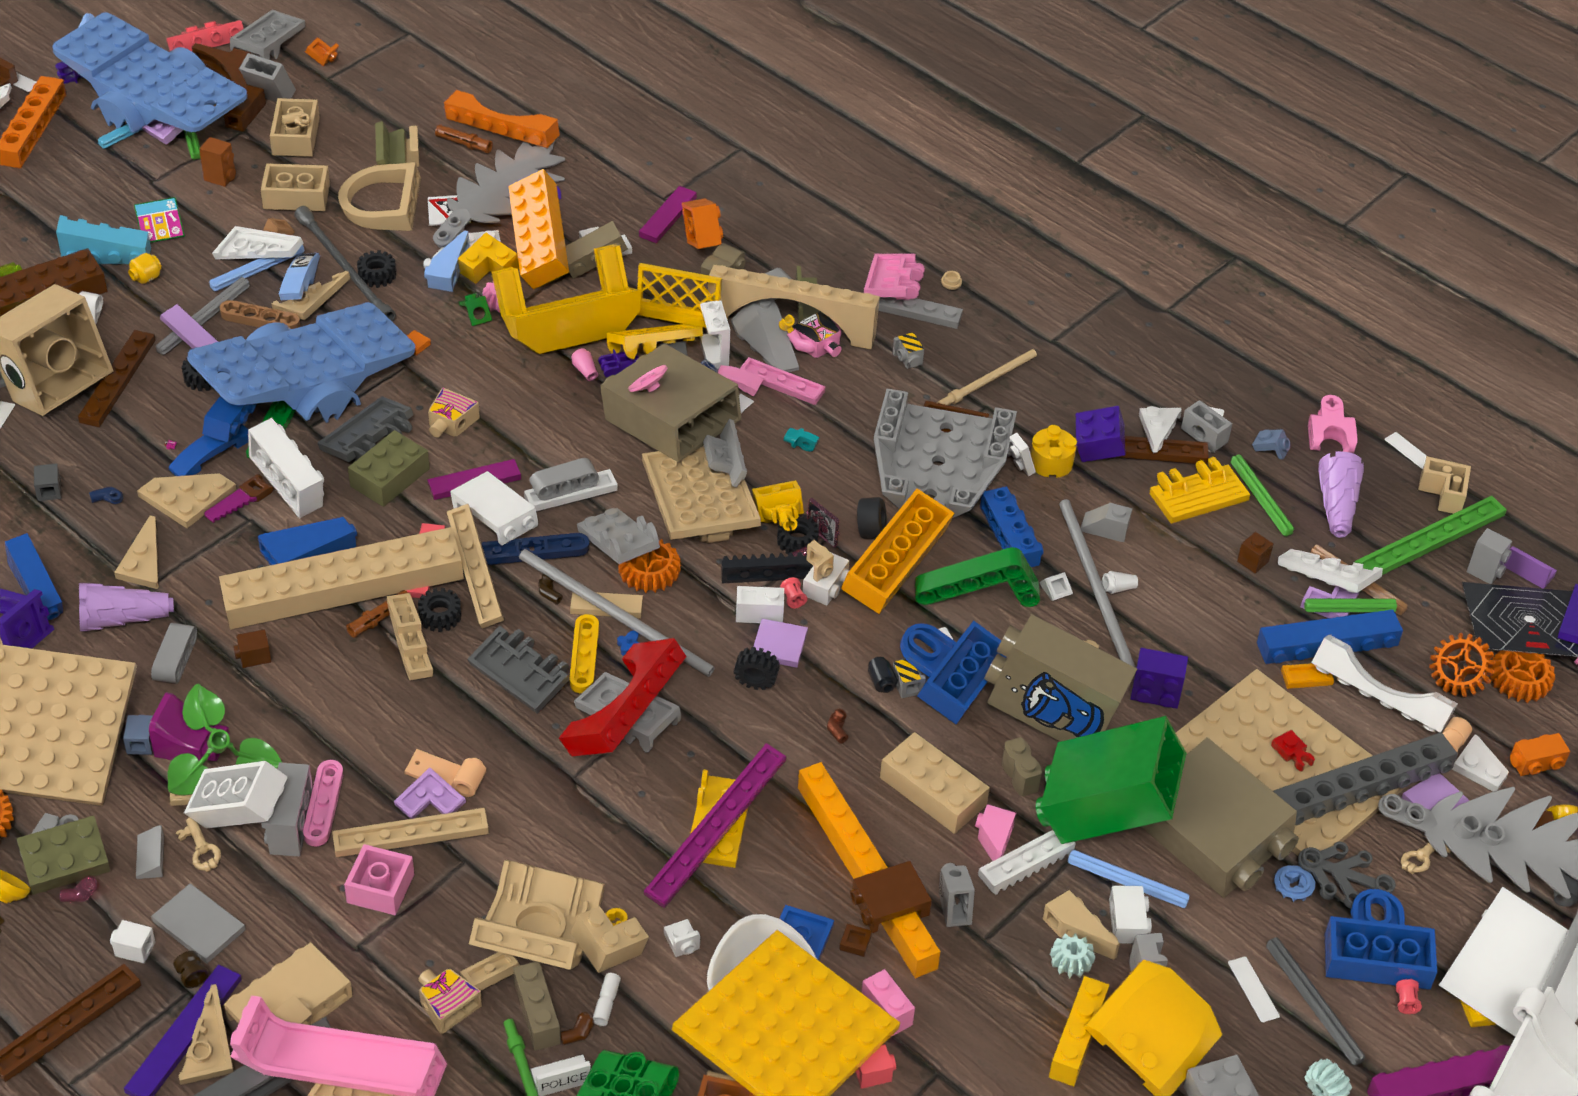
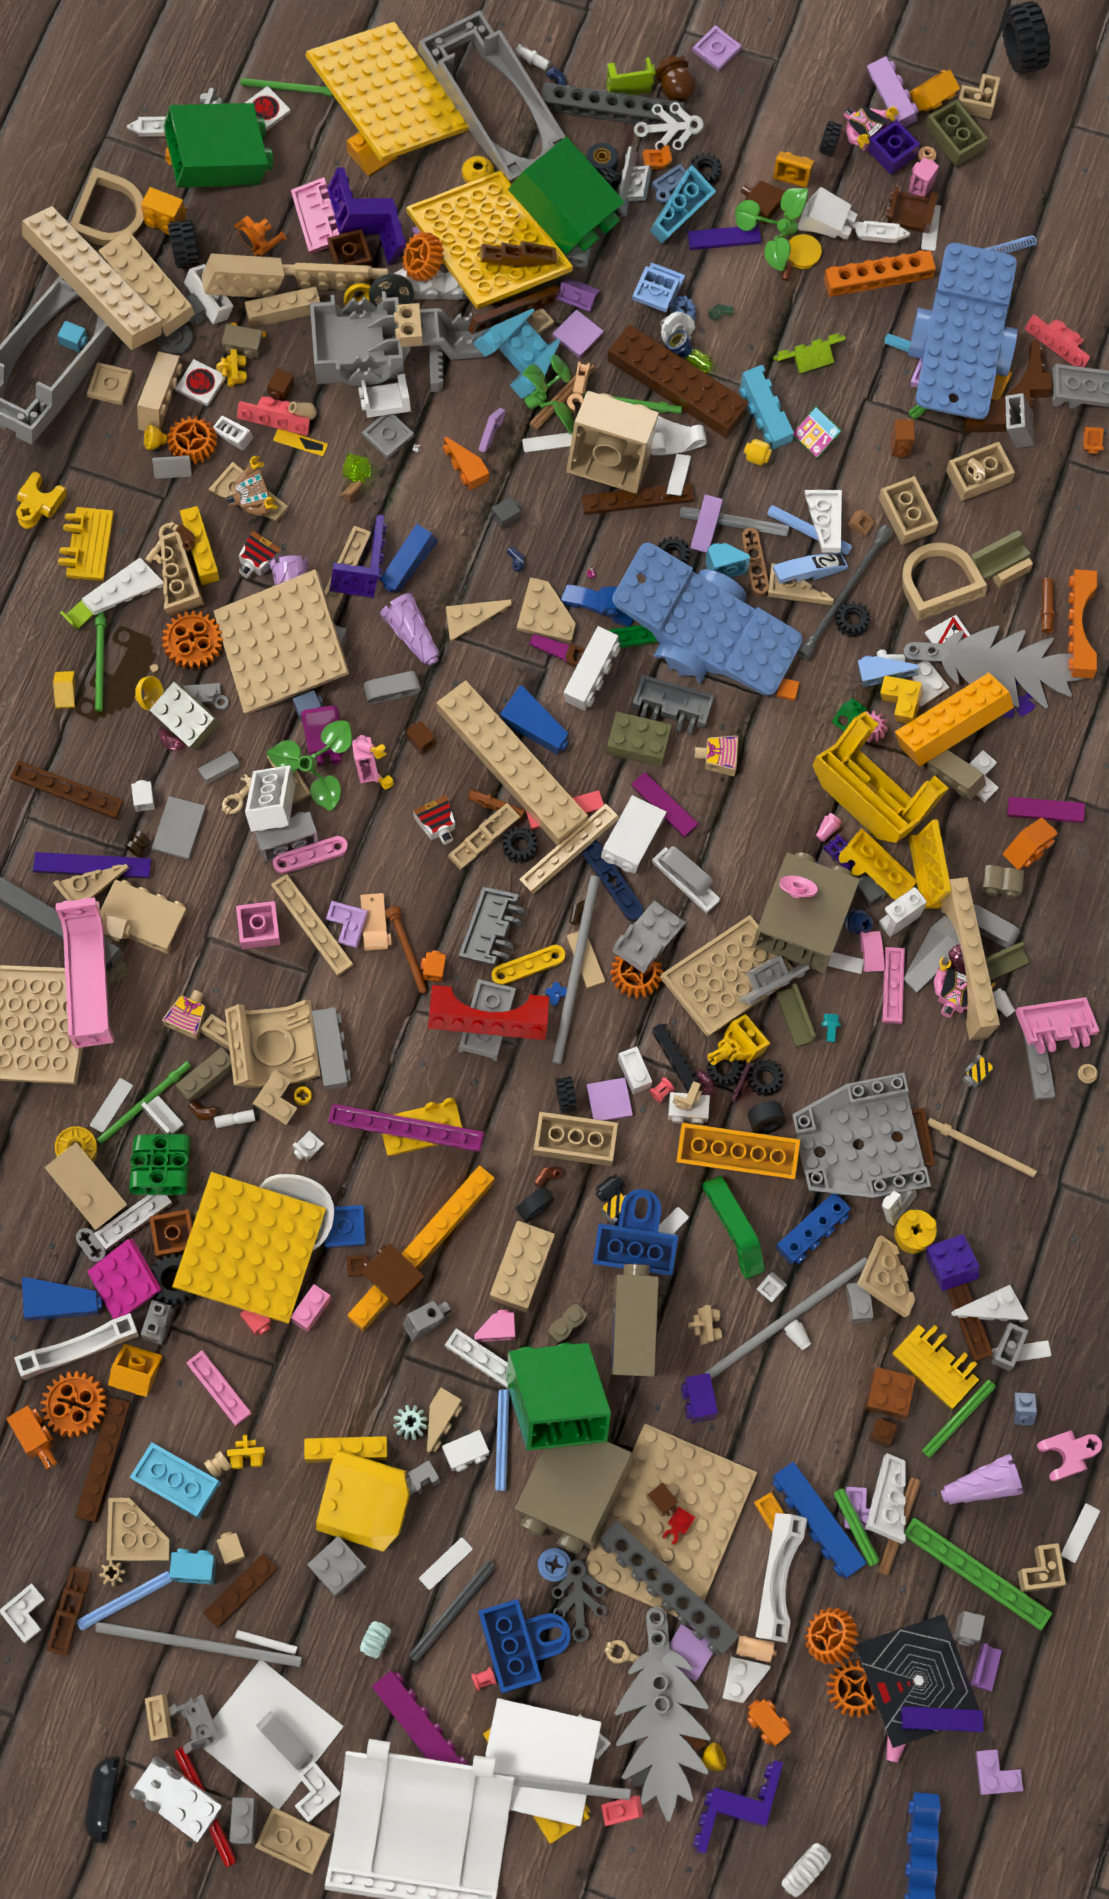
camera: 65 degrees right, 25 degrees up
(74, 195) = (813, 355): none -> lime bracket
(119, 335) = (678, 474): none -> white sticker
(244, 319) = (727, 560): none -> medium azure slope
(247, 697) = (365, 761): none -> bright pink torso
(361, 670) = (436, 819): none -> torso
(450, 750) = (394, 914): none -> dark orange piece
(535, 735) = (433, 966): none -> orange brick
(580, 863) = (330, 1049): none -> light grey brick
(774, 457) = (796, 1016): none -> olive panel
(784, 309) = (957, 960): none -> clear pink beam
(811, 680) = (575, 1139): none -> tan brick
(832, 499) = (760, 1088): none -> black tyre
(869, 740) = (535, 1204): none -> black tyre
(1090, 490) = (886, 1277): none -> tan plate
(1215, 531) = (890, 1393): none -> dark orange brick
(1261, 749) = (662, 1500): none -> reddish brown brick

